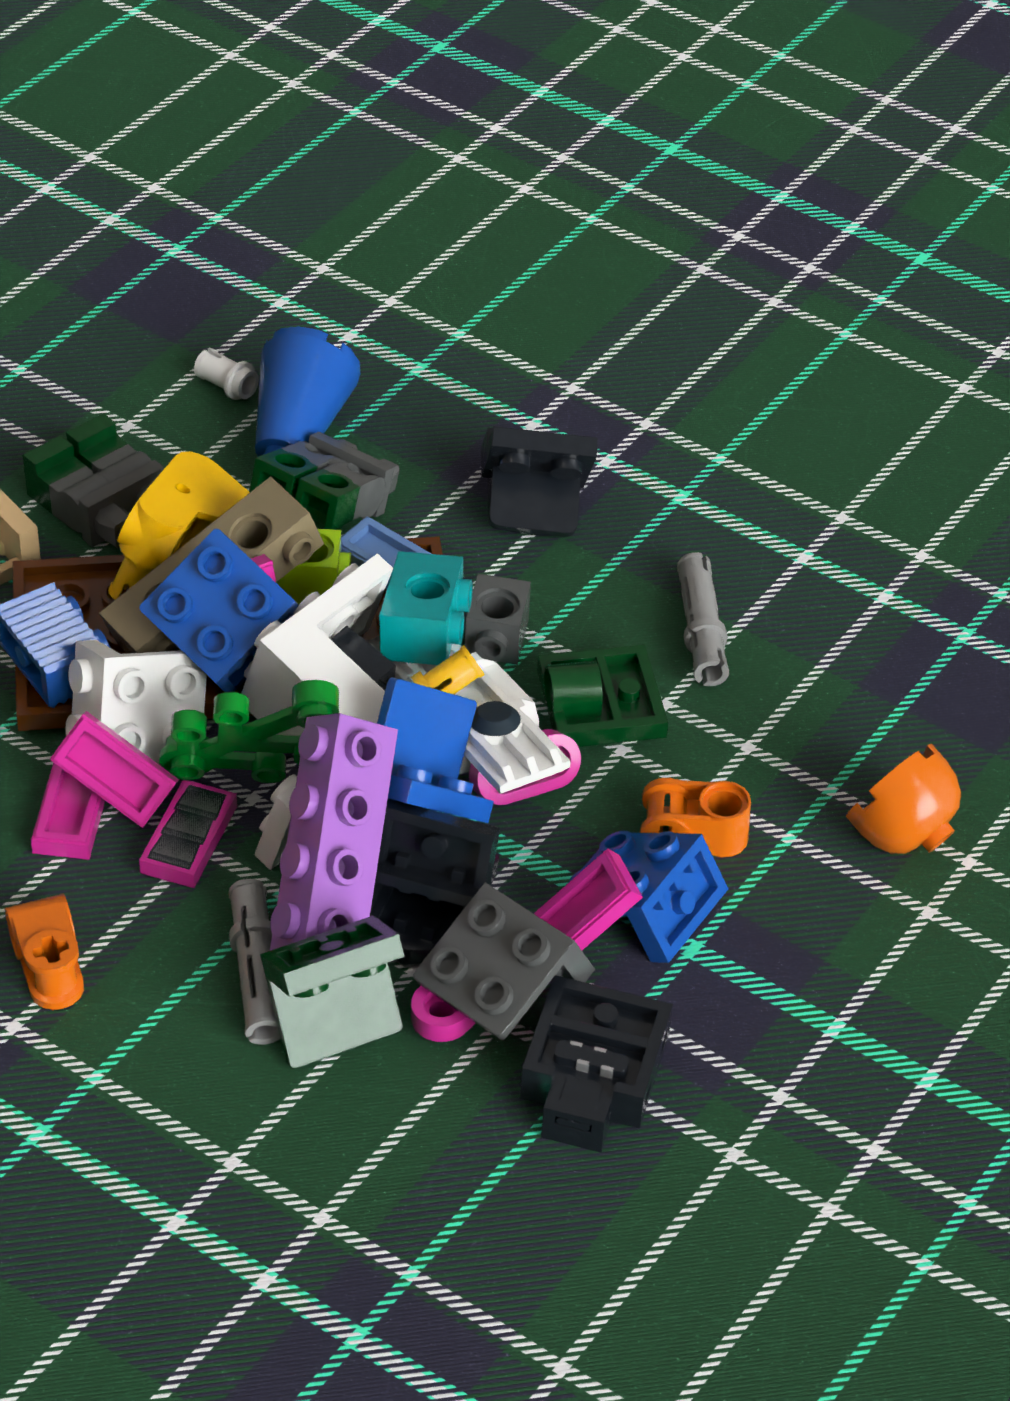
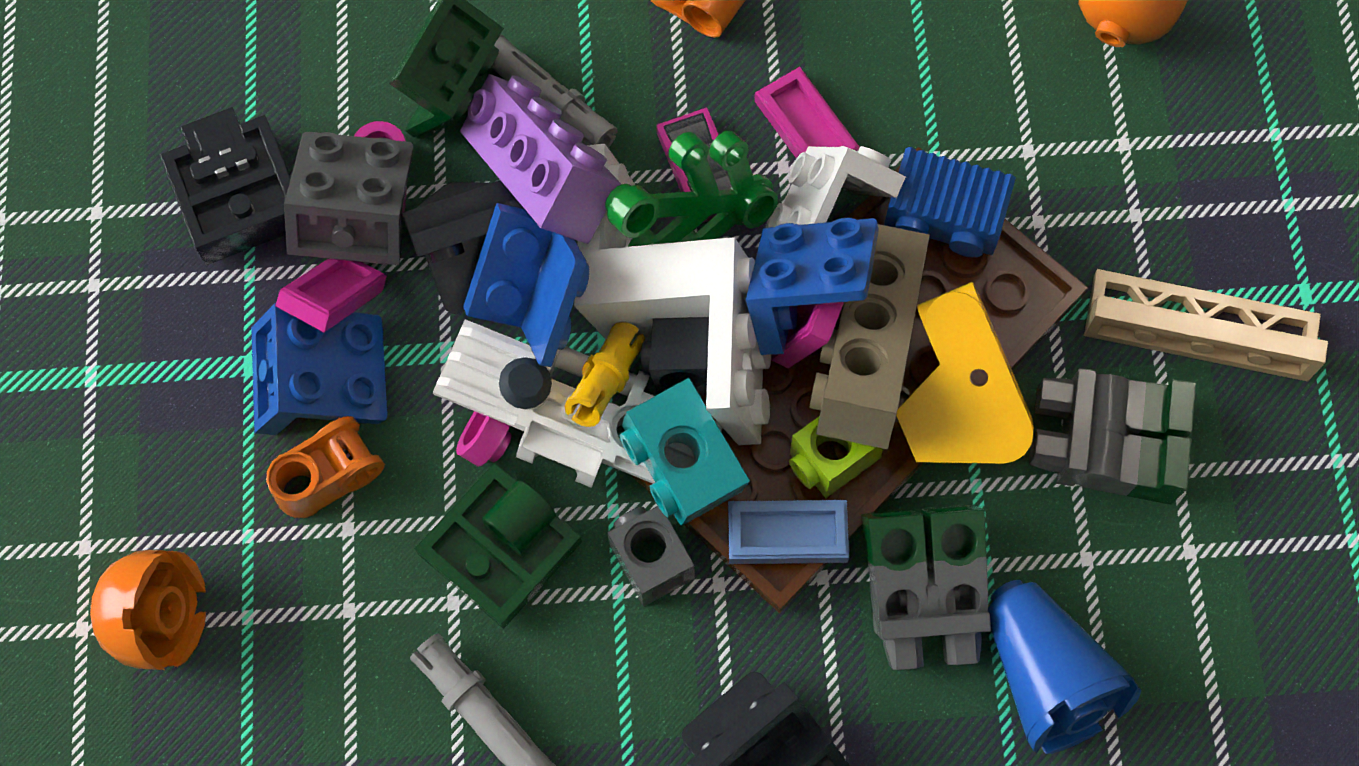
camera: 145 degrees right, 25 degrees up
(114, 769) = (794, 138): dark pink tile -> none
(236, 379) = (1164, 672): white pin -> none

